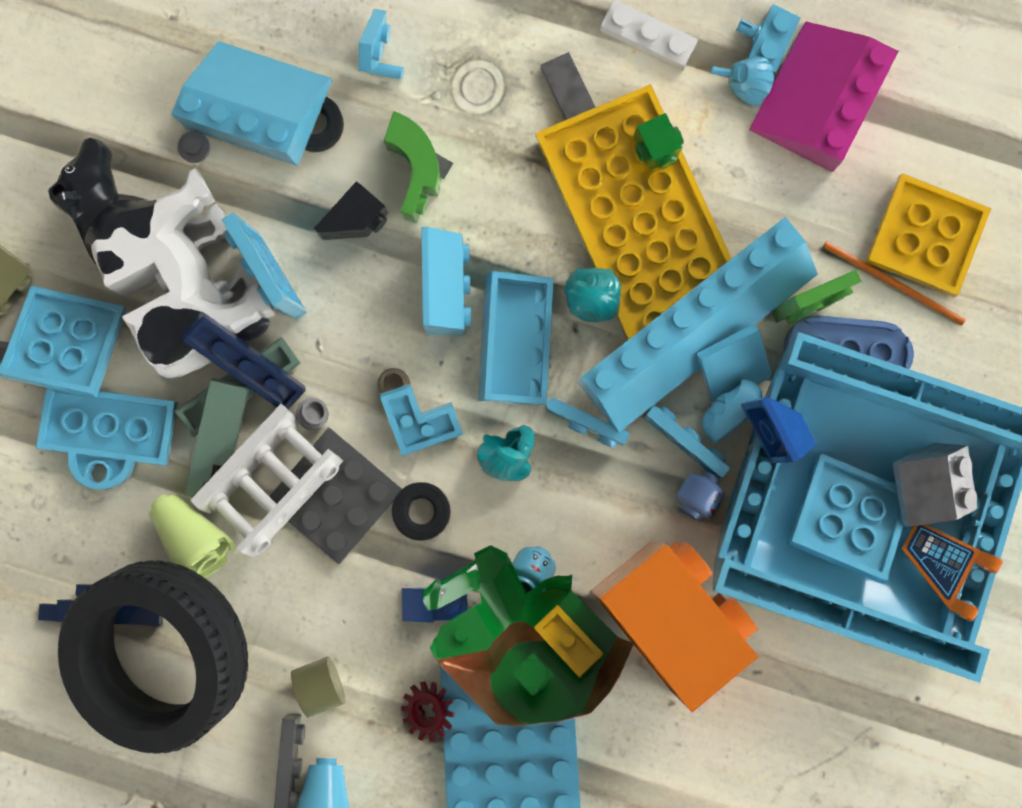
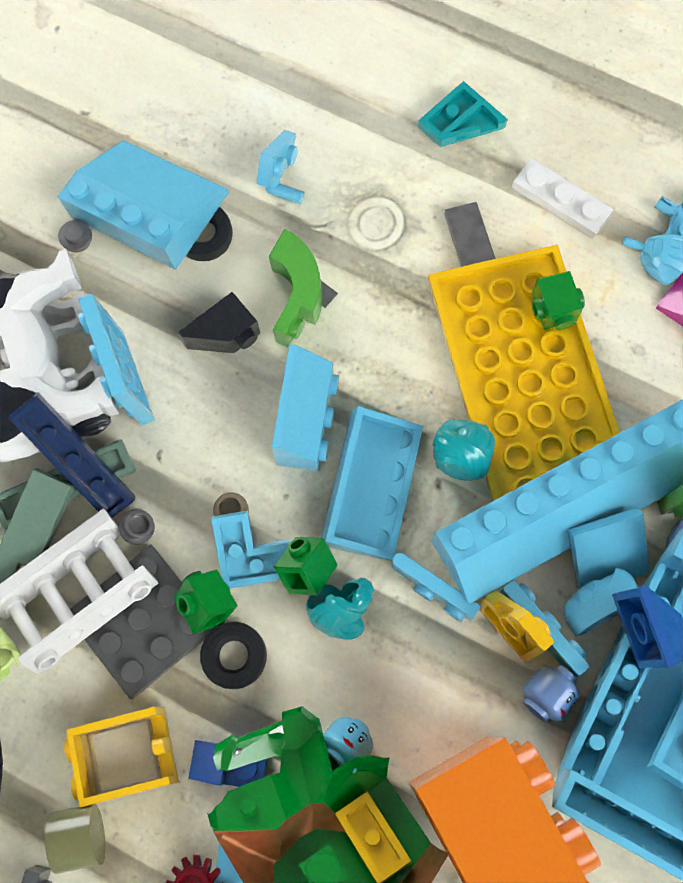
camera: 15 degrees right, 10 degrees down
(341, 613) = (120, 756): none -> window
(387, 469) = (204, 600): none -> green brick
(471, 423) = (305, 565): none -> green brick
(668, 448) = (519, 628): none -> yellow plate

